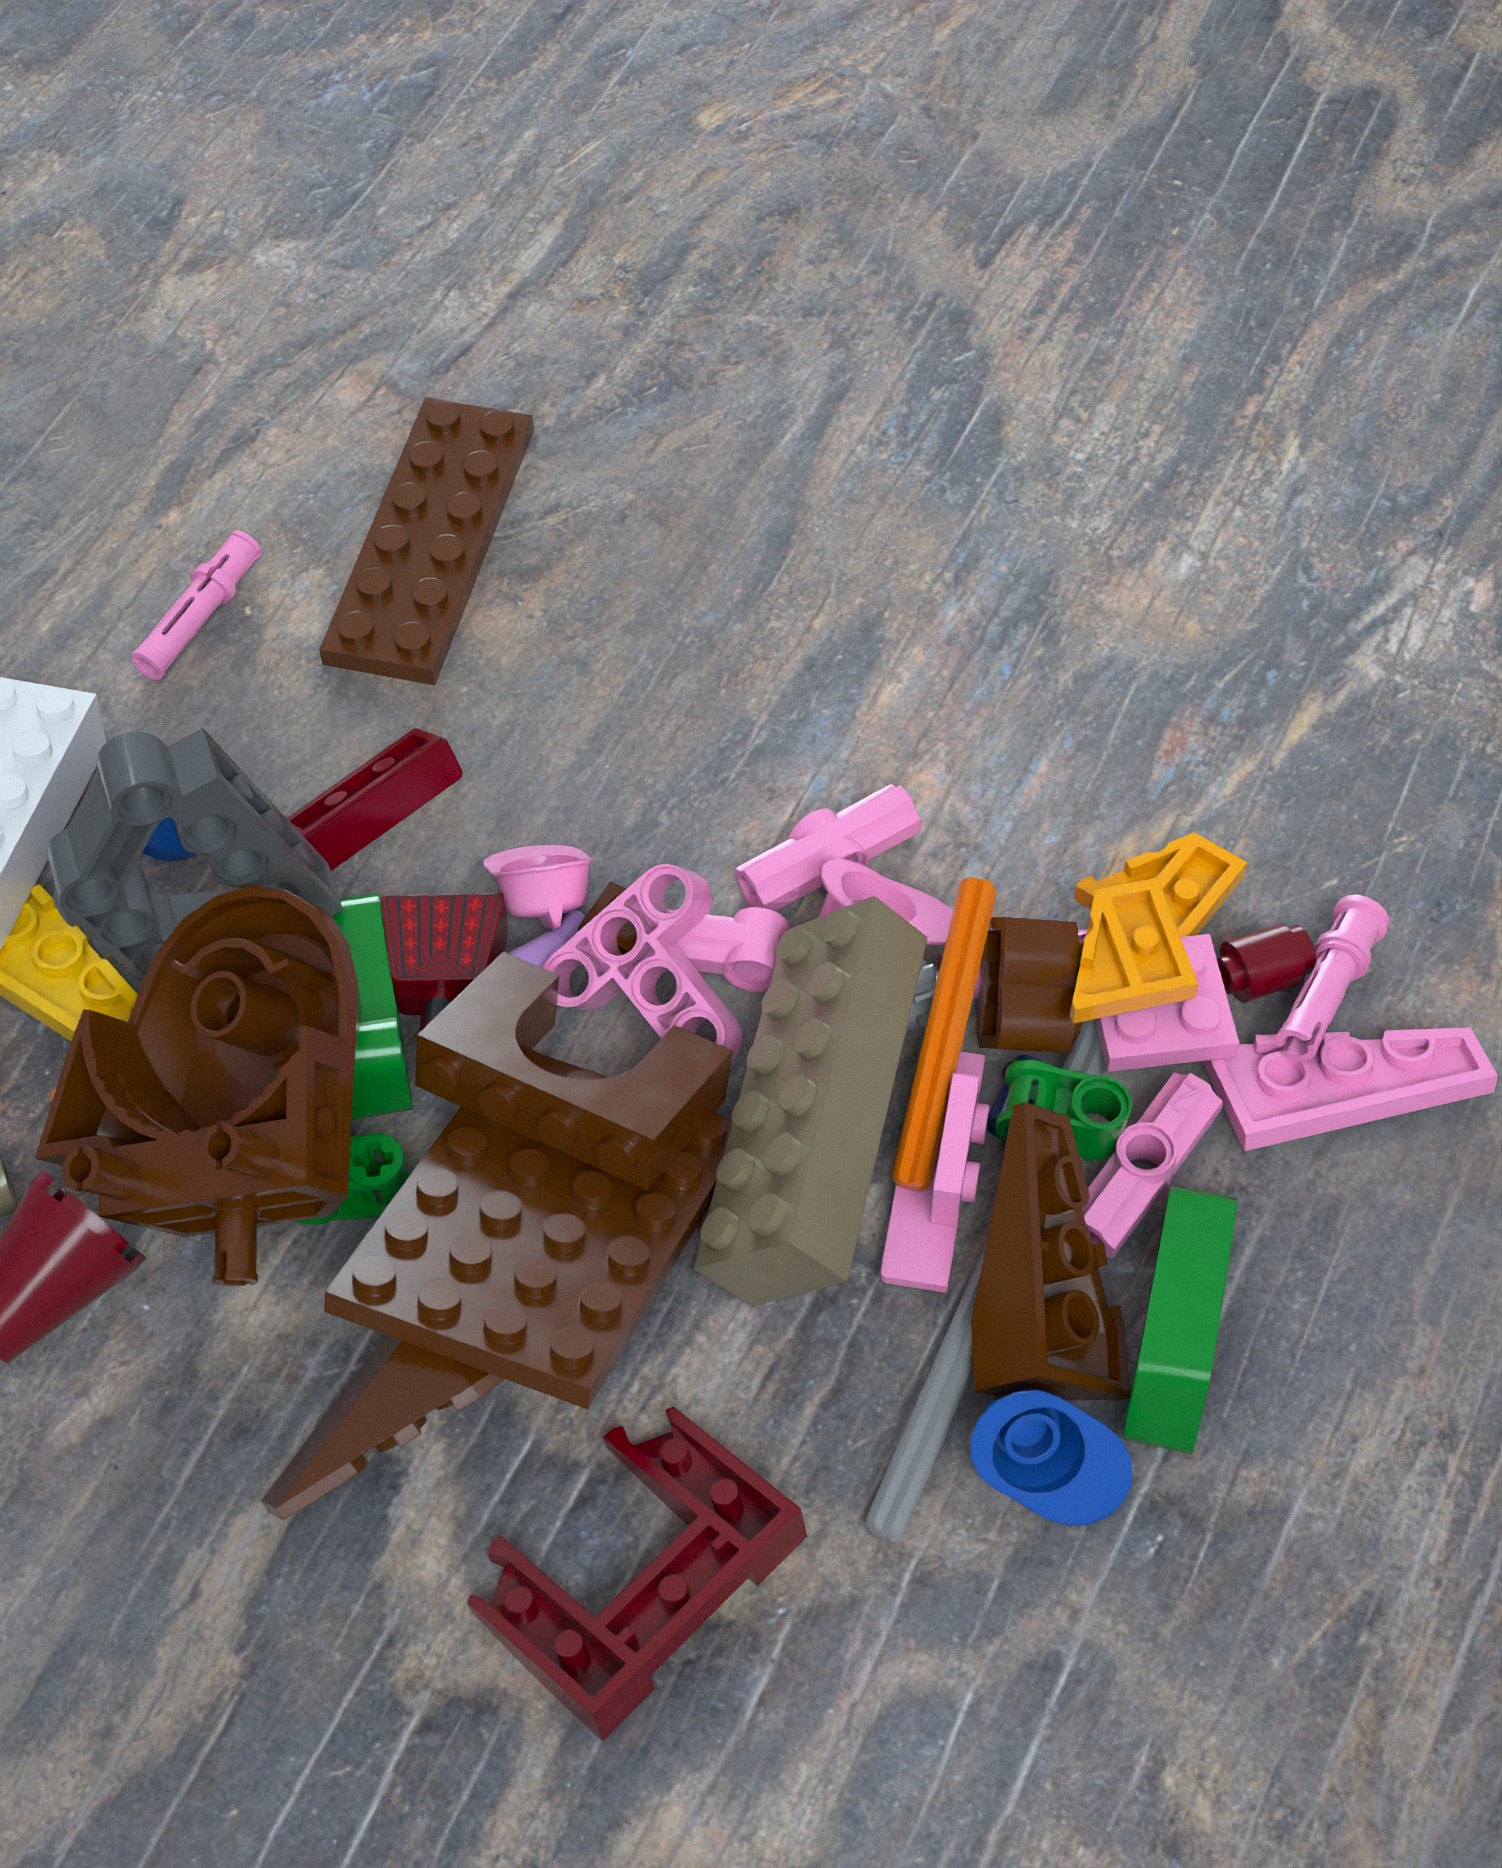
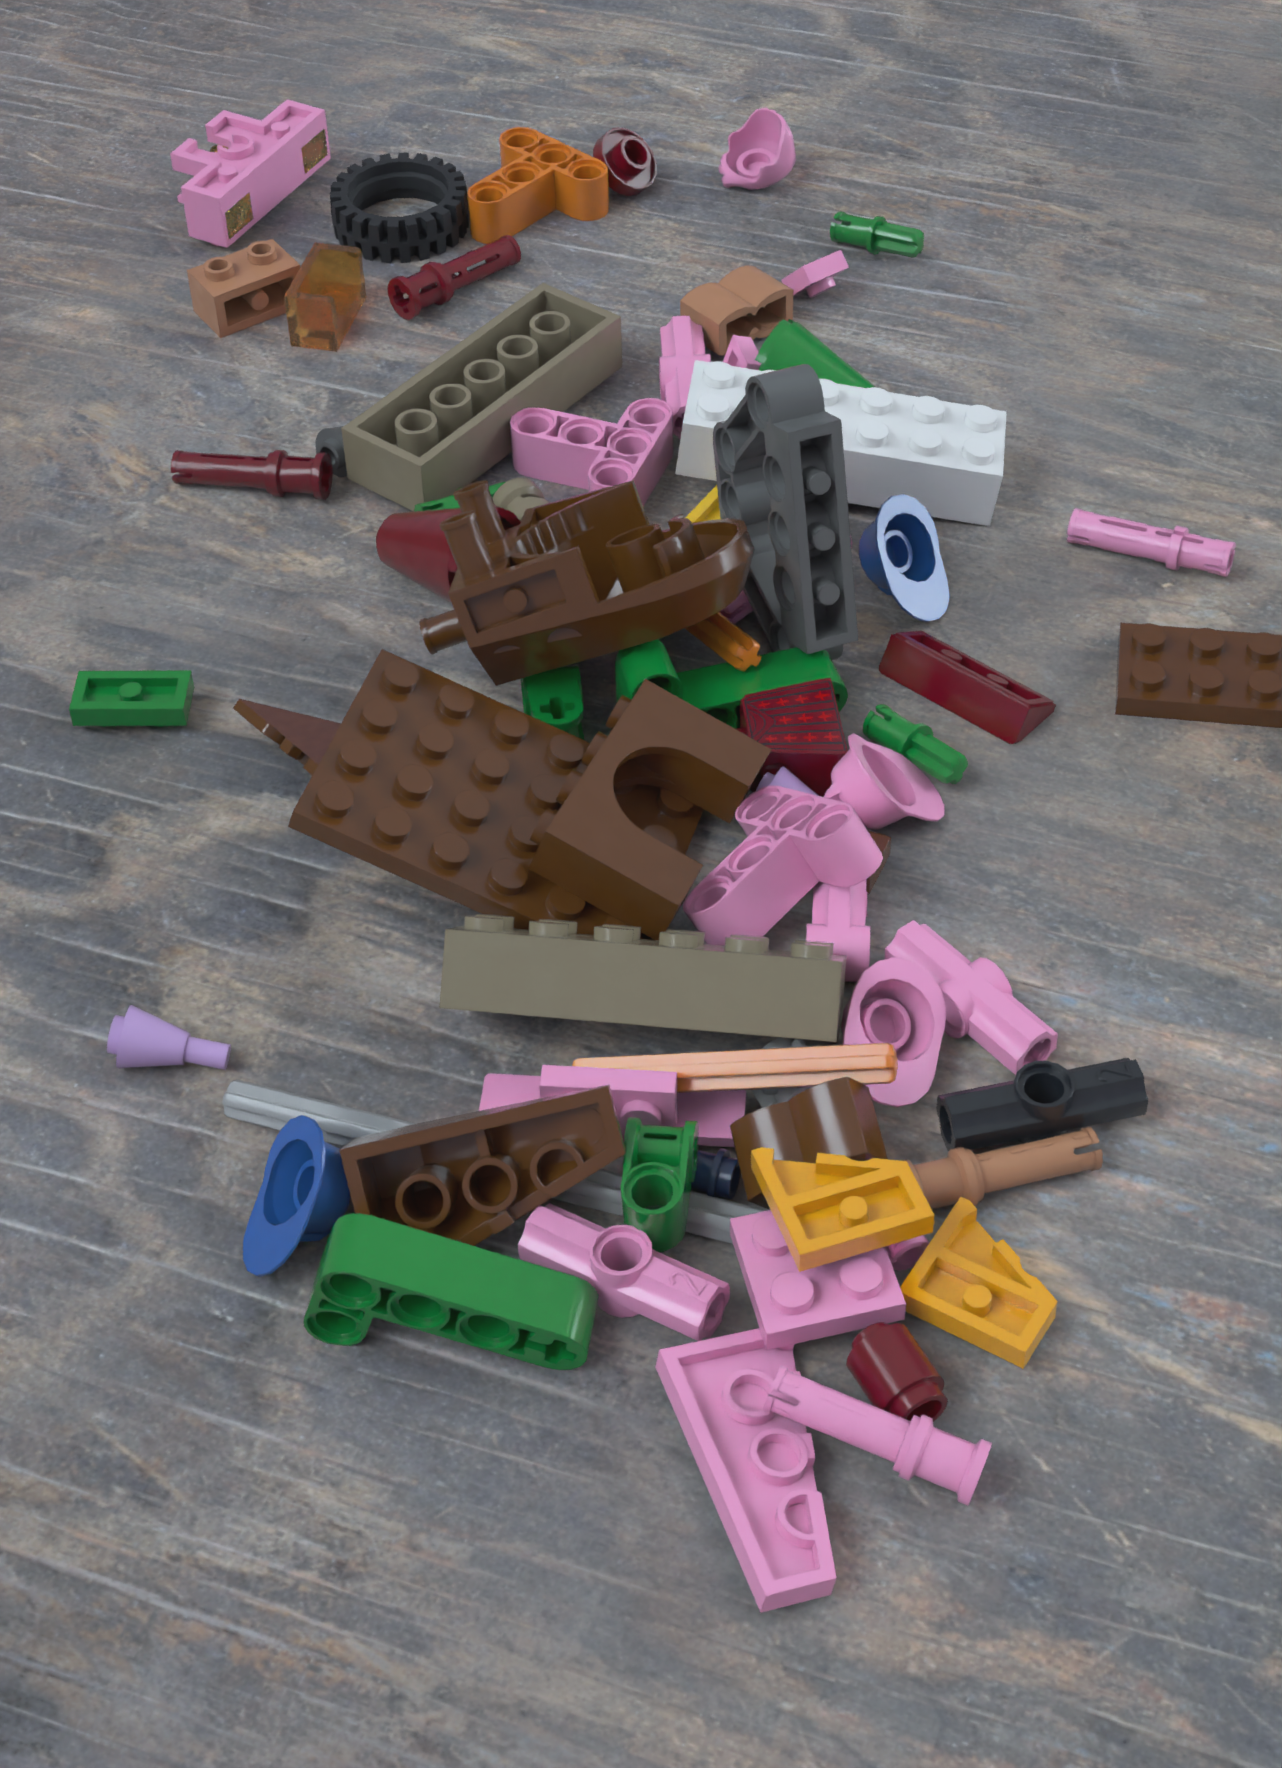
camera: 85 degrees right, 10 degrees down
(206, 1661) = (132, 698): none -> green plate
(467, 848) = (916, 744): none -> green axle
(606, 1662) = (227, 995): dark red wedge -> none
(798, 1620) = (150, 1041): none -> lavender cone
(967, 786) = (1042, 1103): none -> black piece
(1042, 881) = (974, 1175): none -> nougat pin

